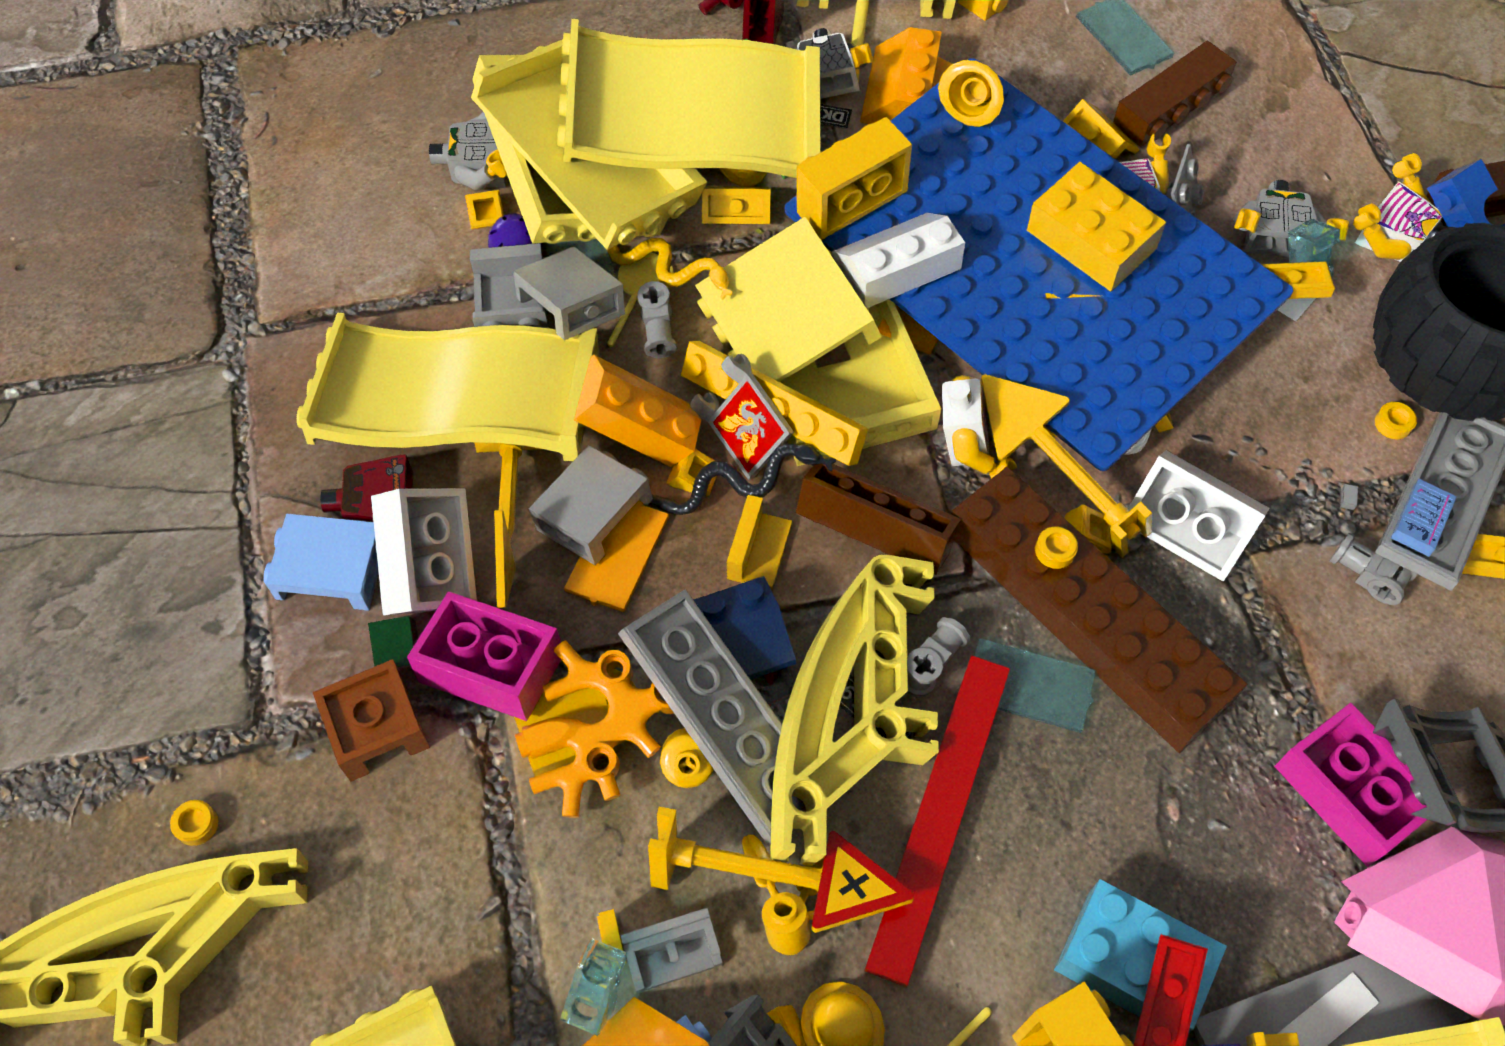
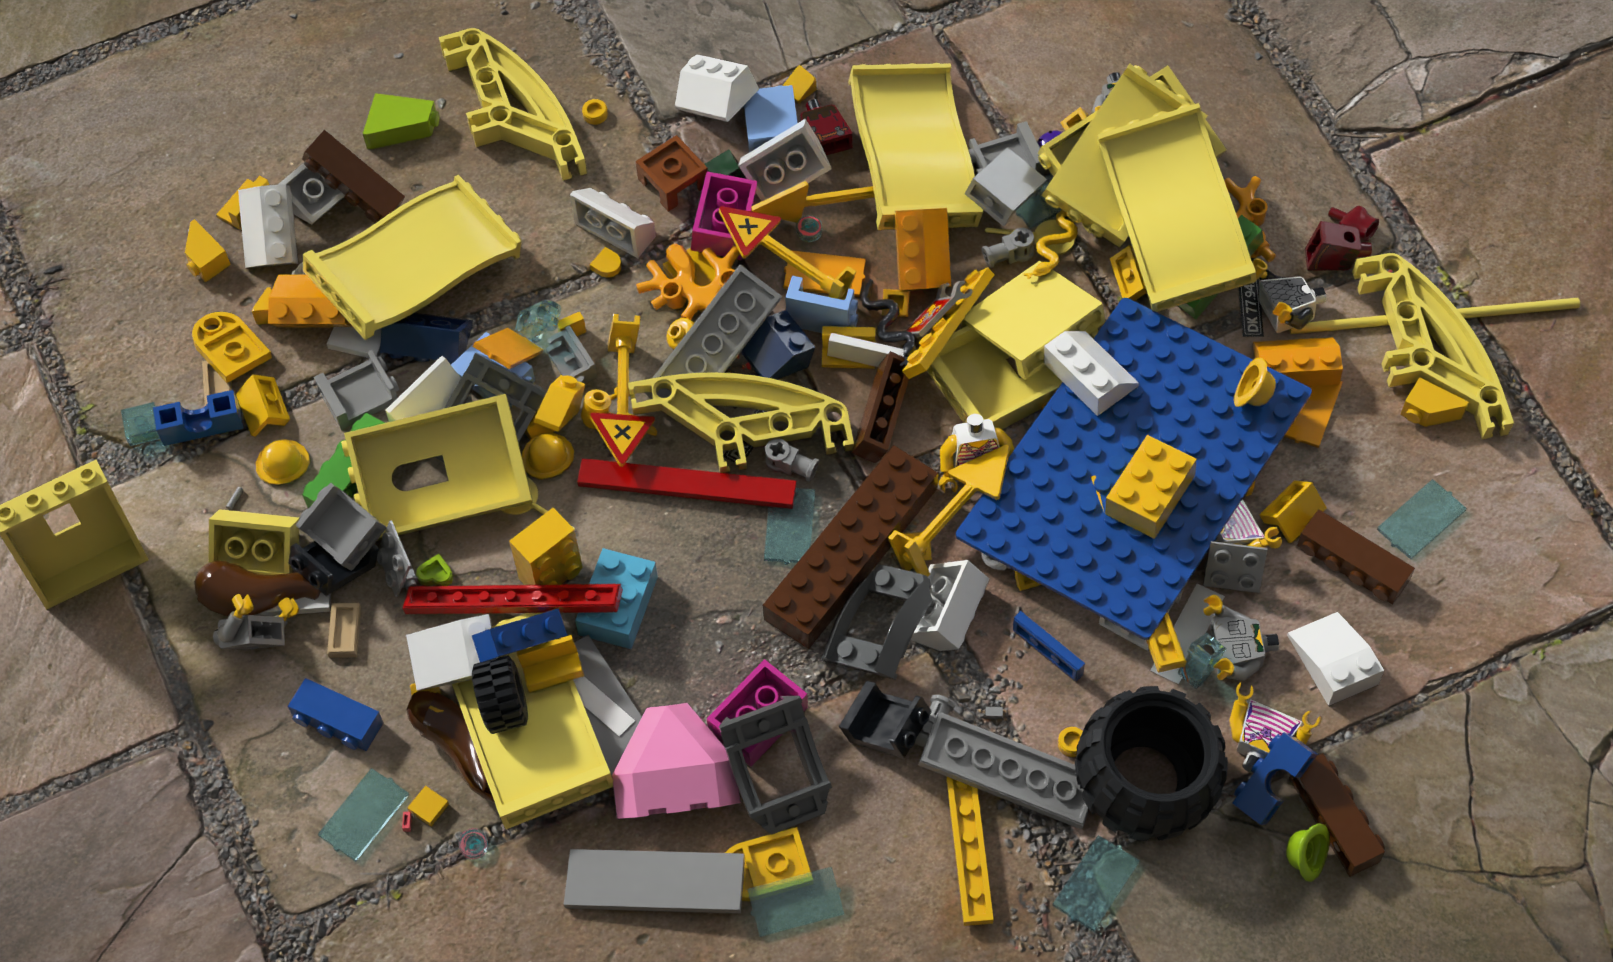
camera: 80 degrees right, 0 degrees up
(245, 620) = (714, 87): none -> white slope
(272, 508) = (802, 82): none -> yellow slope
(431, 828) = (612, 221): none -> white slope
(500, 858) = (606, 263): none -> yellow tile
(535, 554) = (809, 228): none -> clear light blue tile
(545, 616) = (753, 229): none -> yellow piece
(589, 502) = (850, 243): light grey panel -> none
(705, 557) = (815, 311): none -> light blue panel
(762, 970) = (560, 403): none -> yellow slope
(776, 521) = (859, 350): none -> white tile
(853, 177) = (1139, 321): yellow brick -> none
(1056, 547) = (875, 504): yellow tile -> none
(1266, 410) = (1048, 646): none -> blue tile
(1272, 624) = (872, 657): none -> dark grey wedge
(1303, 140) = (1336, 658): none -> white slope
(1383, 613) = (884, 721): none -> black panel
(1423, 517) = (967, 737): medium blue tile -> none

